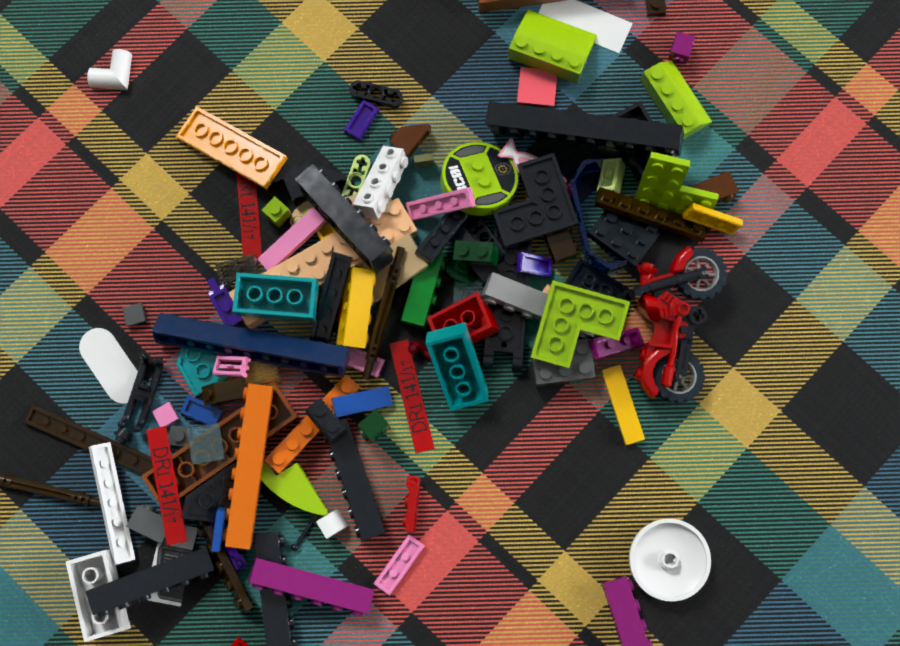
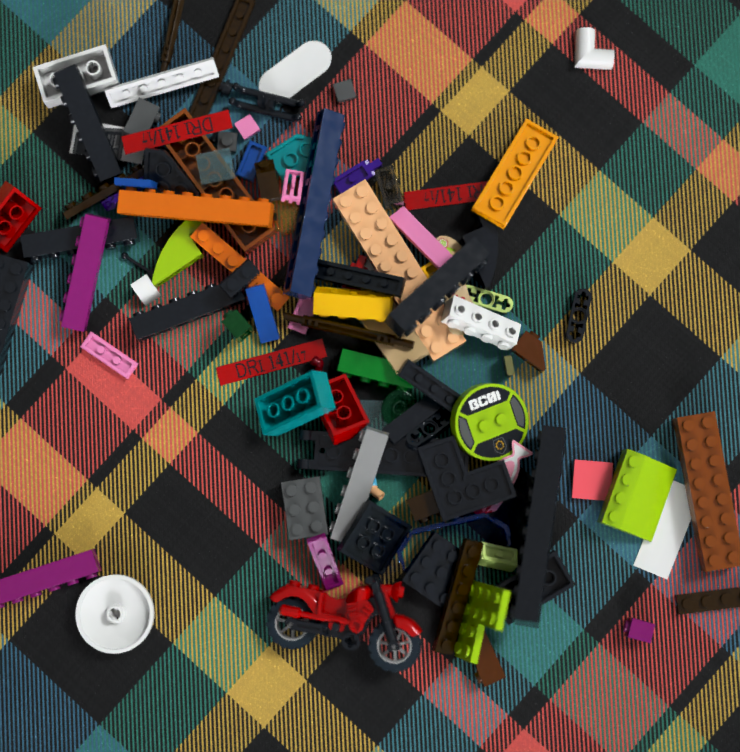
camera: 90 degrees right, 5 degrees up
(275, 297) = (357, 224): teal brick -> none
(276, 212) = (449, 222): lime brick -> none
(361, 120) = (550, 302): dark purple tile -> none
(411, 502) = (165, 365): red hinge -> none
(441, 204) = (459, 383): bright pink tile -> none
(476, 253) = (409, 419): dark green brick -> none
(534, 265) = (402, 479): dark purple tile -> none
(572, 310) = (351, 516): lime plate -> none
(622, 405) = (265, 569): yellow tile -> none
(674, 97) = (583, 624): lime slope -> none
(712, 218) = (454, 659): yellow tile -> none

